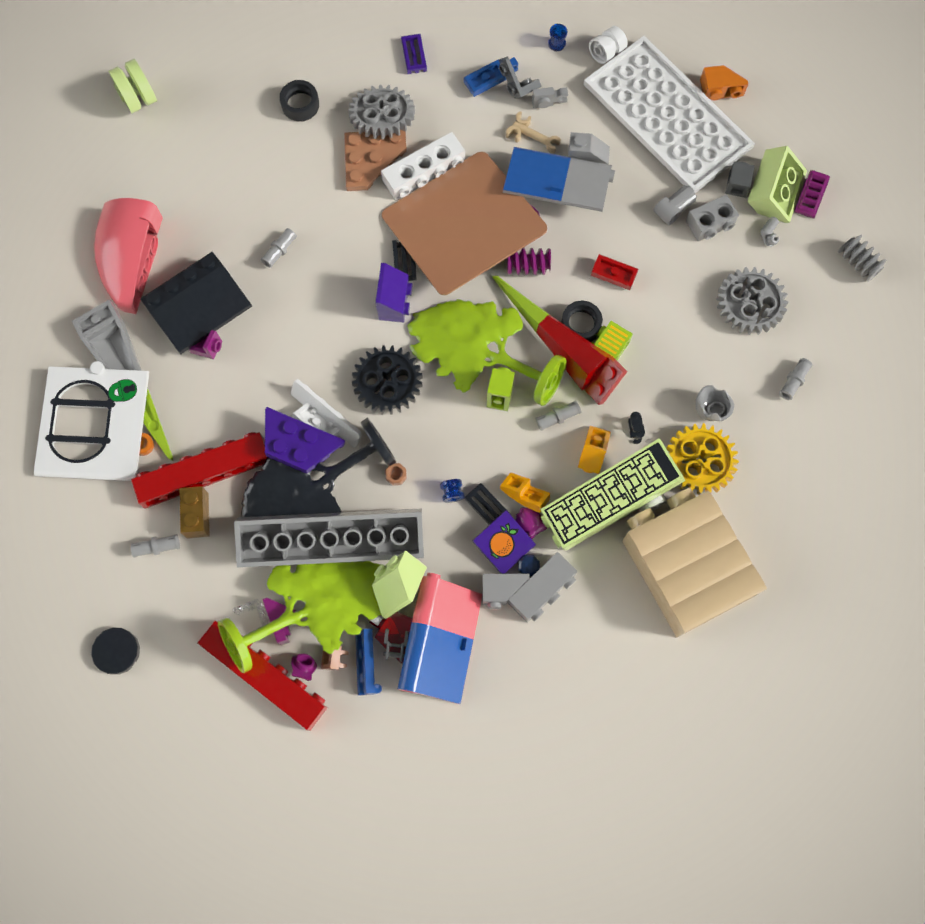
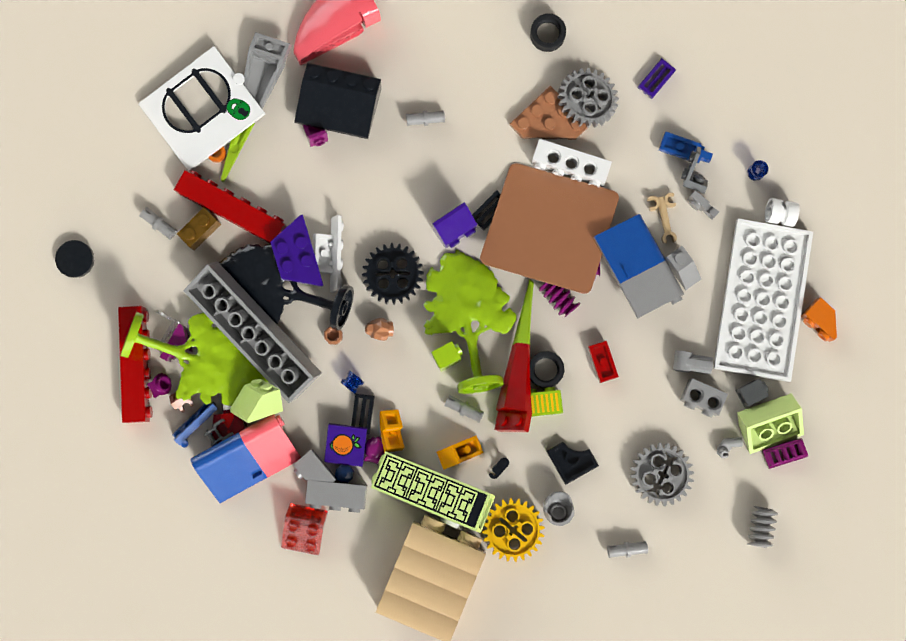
camera: 50 degrees right, 10 degrees up
(426, 428) = (380, 329): none -> nougat rock
(550, 643) = (303, 529): none -> clear red bracket
(681, 367) = (571, 463): none -> black tile

